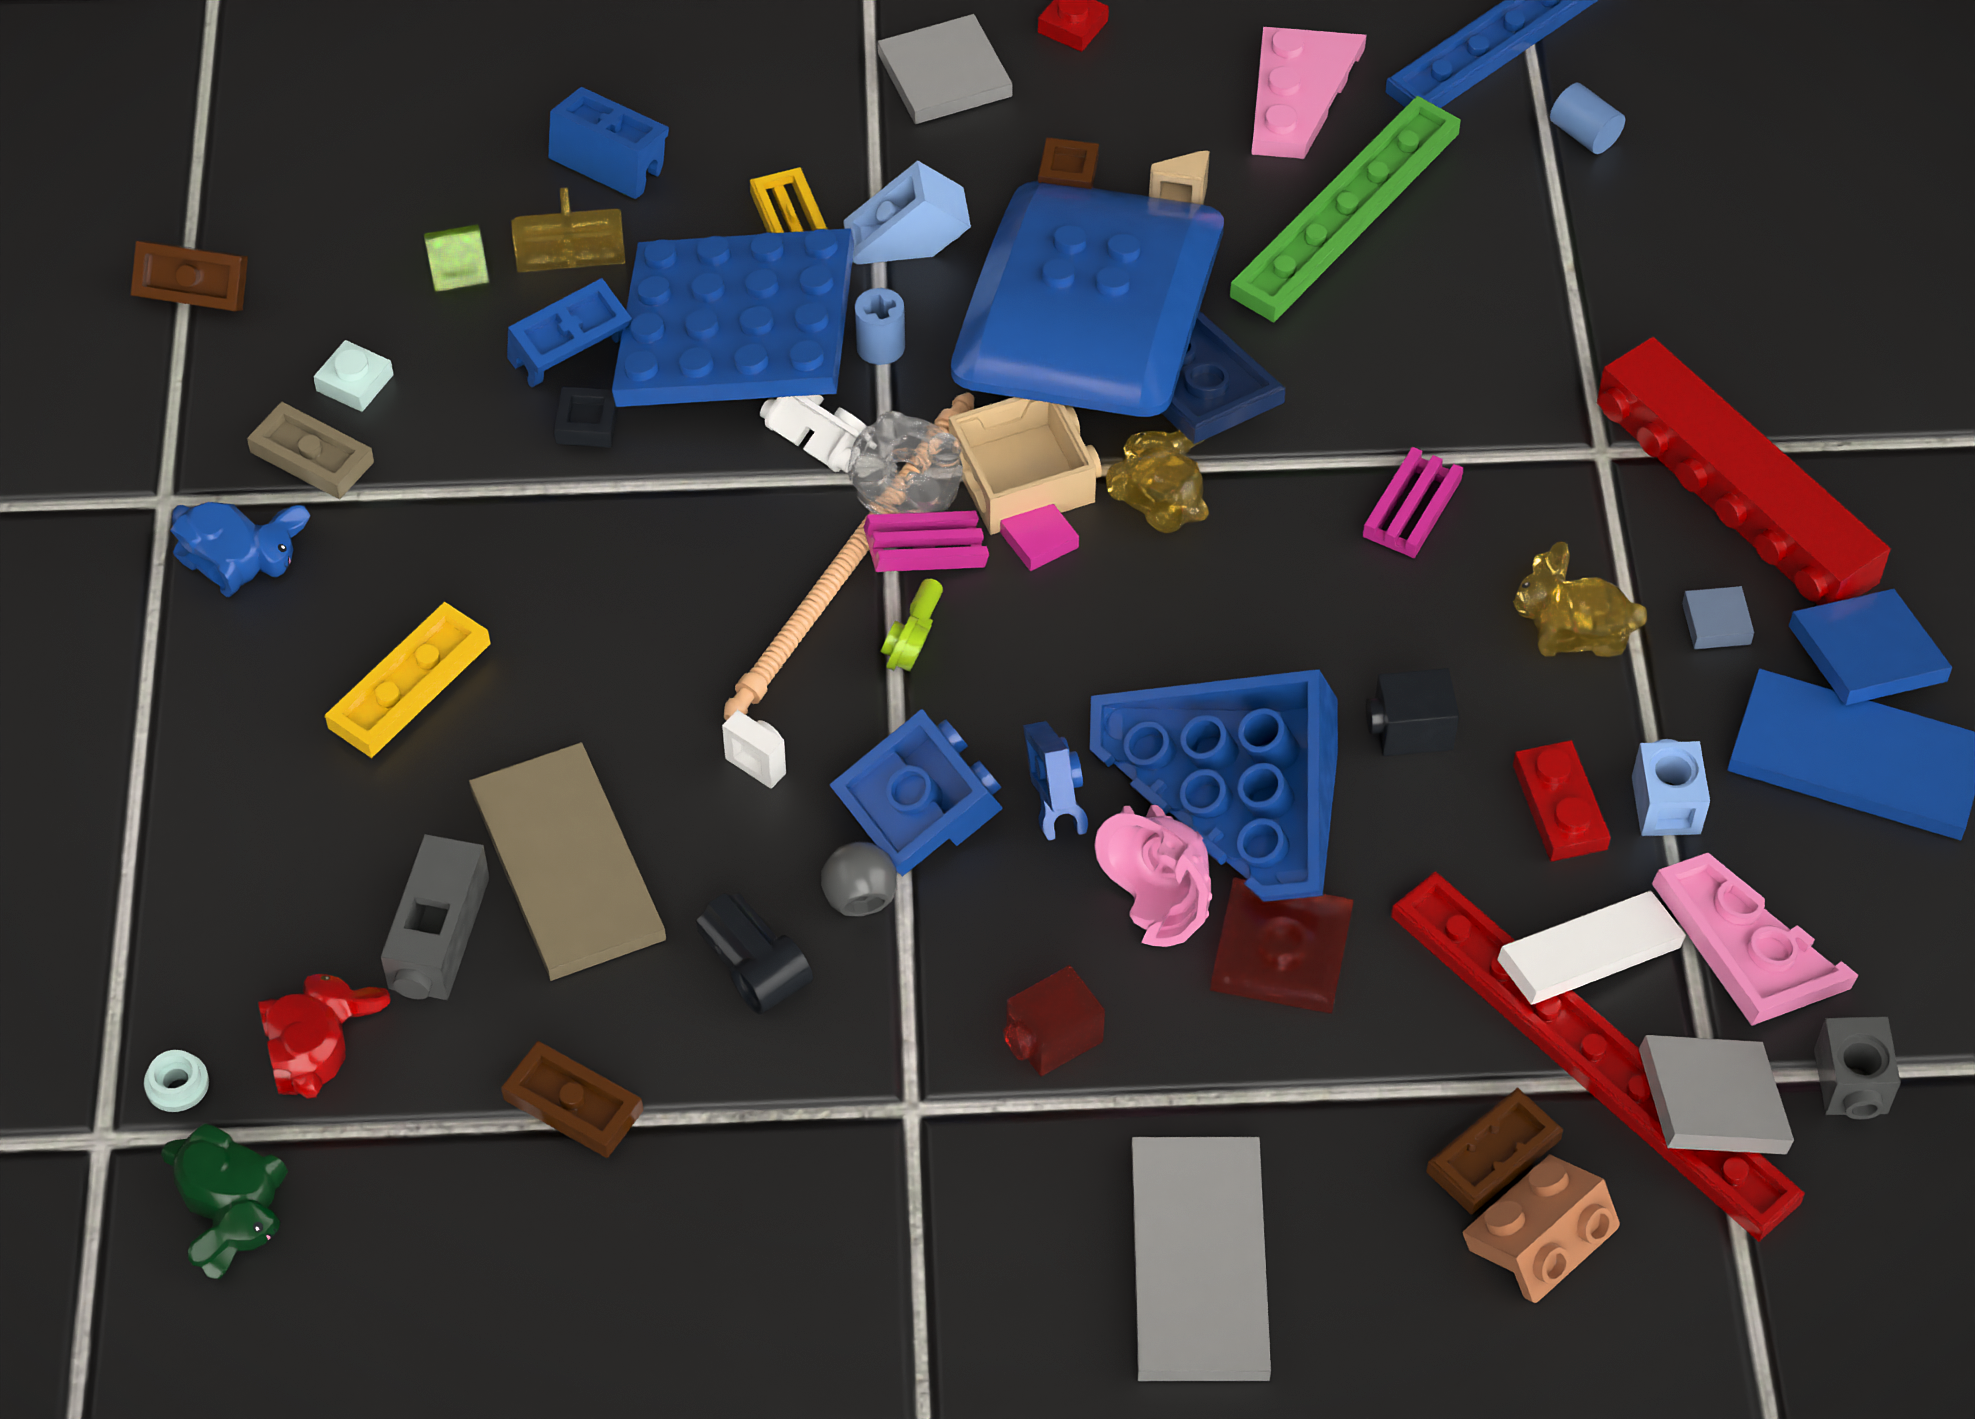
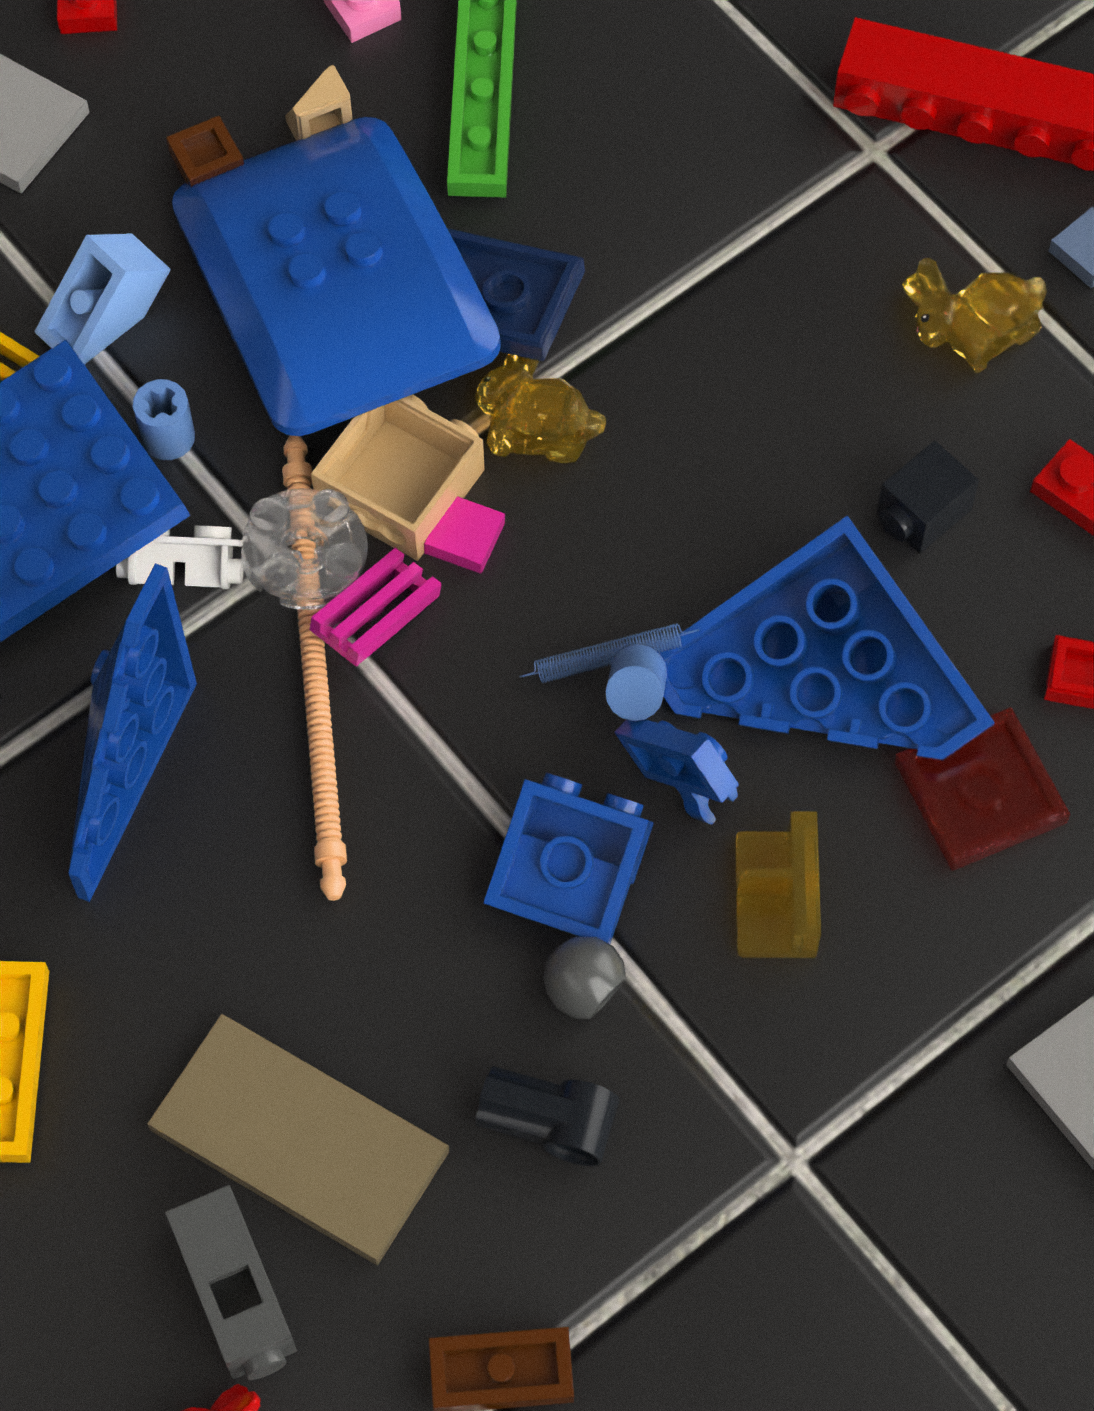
camera: 35 degrees left, 10 degrees up
(678, 499) = (132, 714): none -> blue slope
(754, 748) = (388, 912): white plate -> none
(907, 640) = (439, 715): lime plate -> none
(1054, 1021) = (860, 996): clear red brick -> none
(1061, 914) = (779, 890): none -> clear yellow panel
(1066, 699) = (636, 682): none -> medium blue piece
(1077, 670) = (574, 659): none -> medium blue piece
(1163, 870) = (855, 791): bright pink helmet -> none
(1429, 471) = (755, 257): dark pink tile -> none

